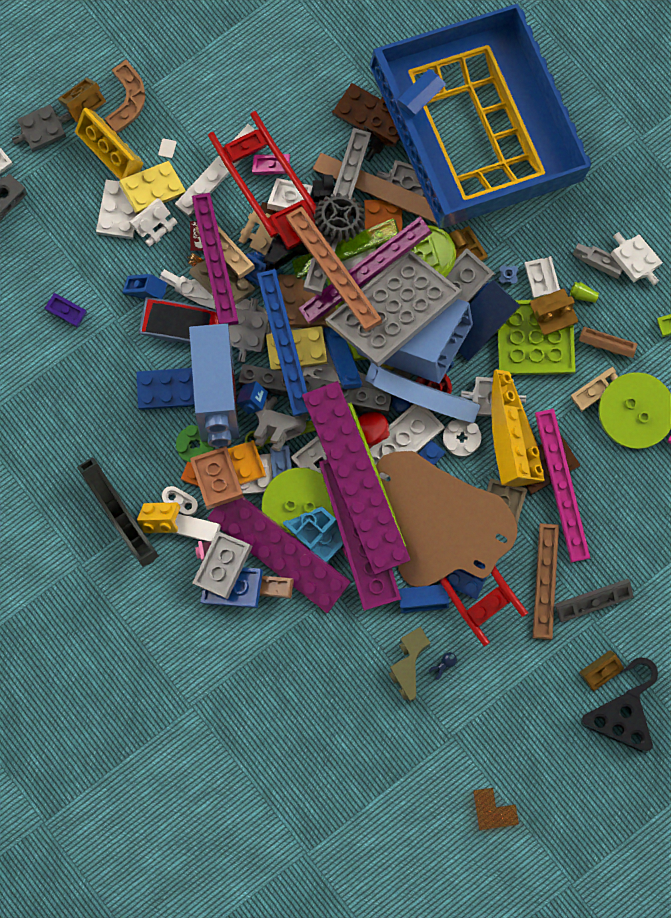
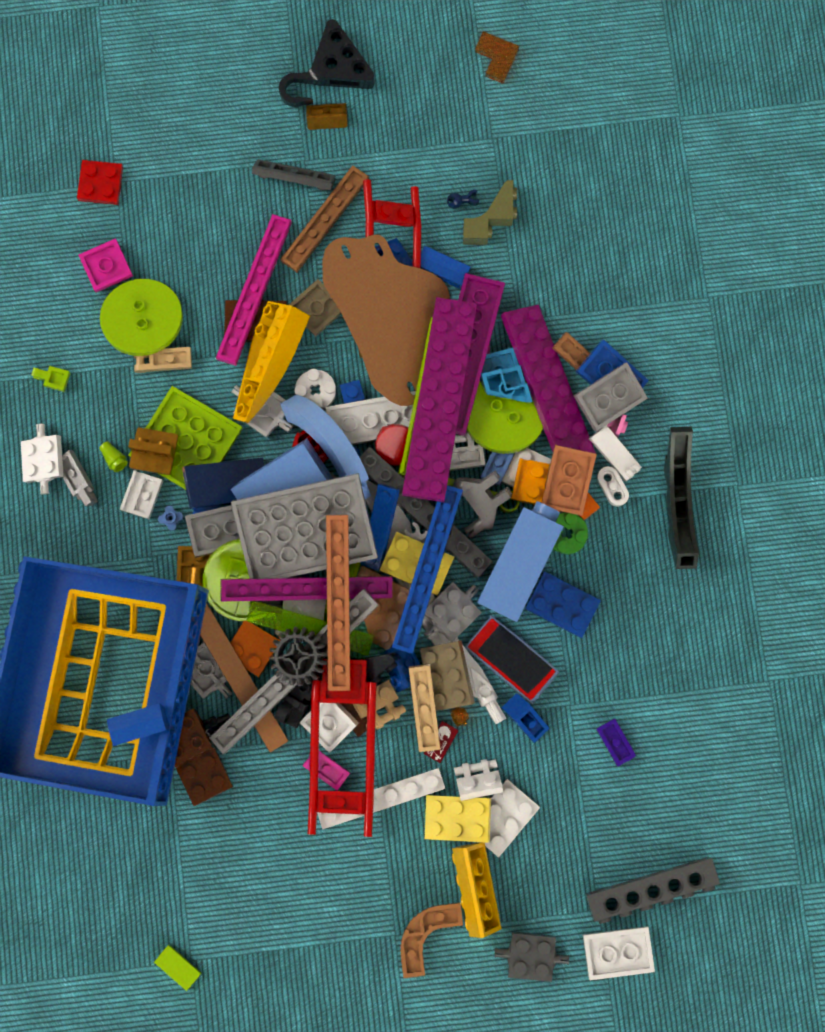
camera: 150 degrees left, 5 degrees up
(81, 96) = (473, 962): pearl gold bracket -> none
(158, 517) = (642, 480): yellow bracket -> none
(167, 148) = (416, 855): white sticker -> none
(214, 259) = (443, 696): magenta plate -> none
(252, 397) = (489, 538): blue brick -> none
(608, 342) = (123, 396): medium nougat plate -> none

